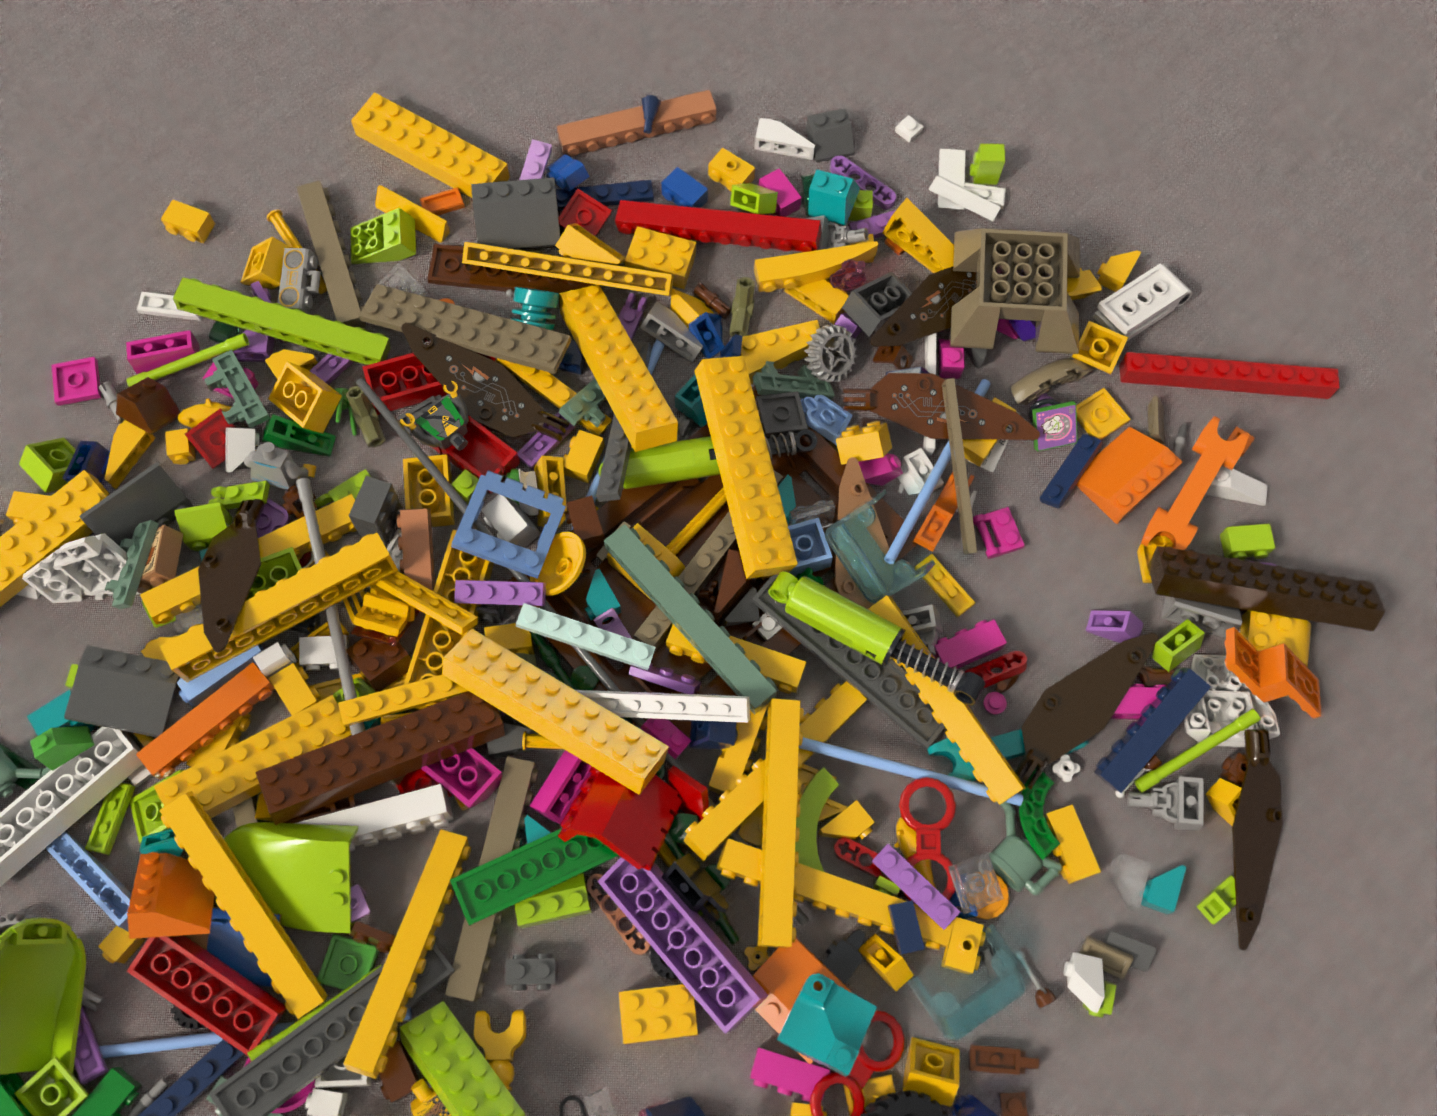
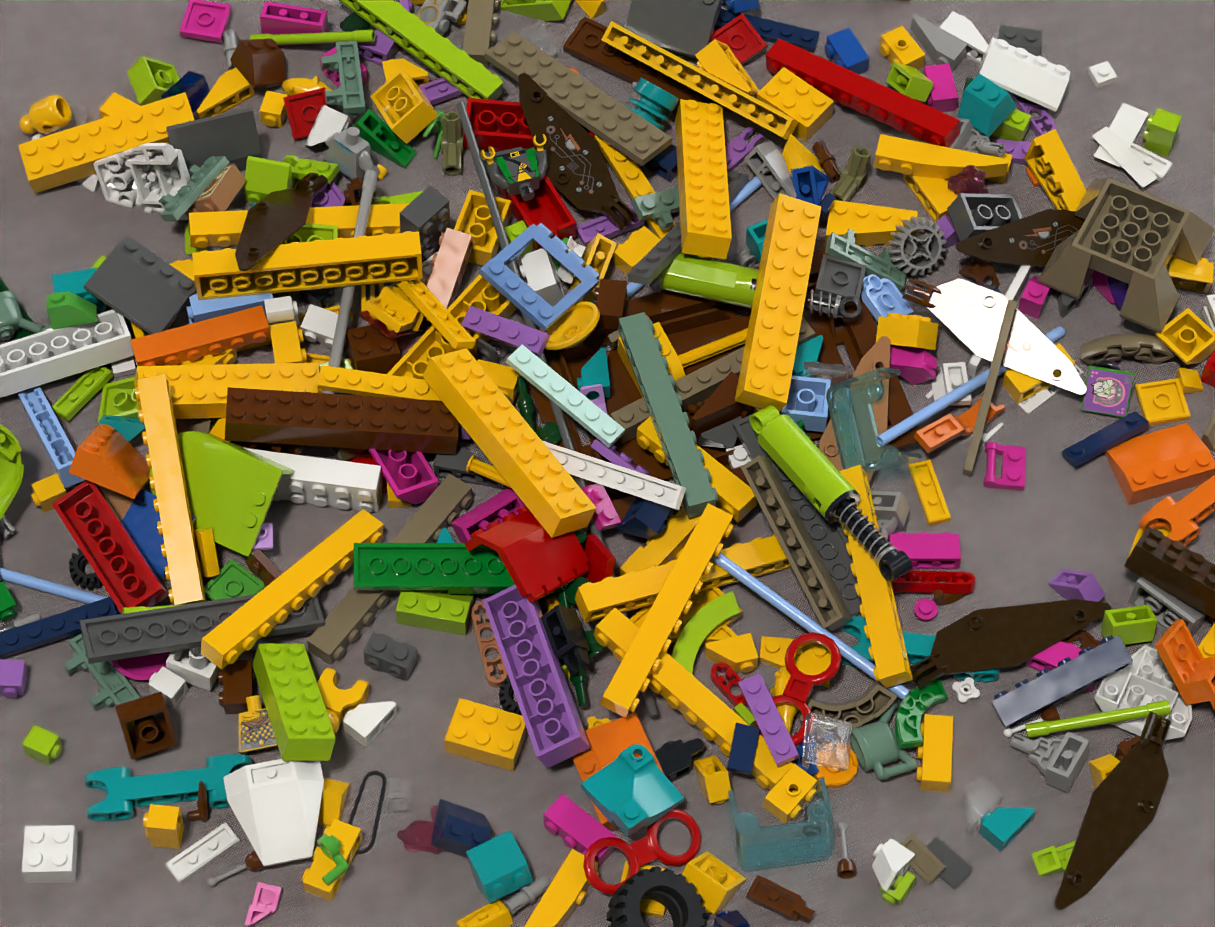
camera: 25 degrees right, 10 degrees down
(306, 944) = (206, 552): none -> yellow slope
(539, 1050) = (369, 720): none -> white slope
(760, 153) = (938, 44): none -> light grey slope
(849, 154) = (1024, 73): none -> white slope
(863, 696) = (796, 543): none -> dark tan brick
(885, 802) = (809, 659): none -> yellow wing
(980, 834) = (857, 710): none -> dark tan brick
(1113, 385) = (1189, 380): none -> yellow slope

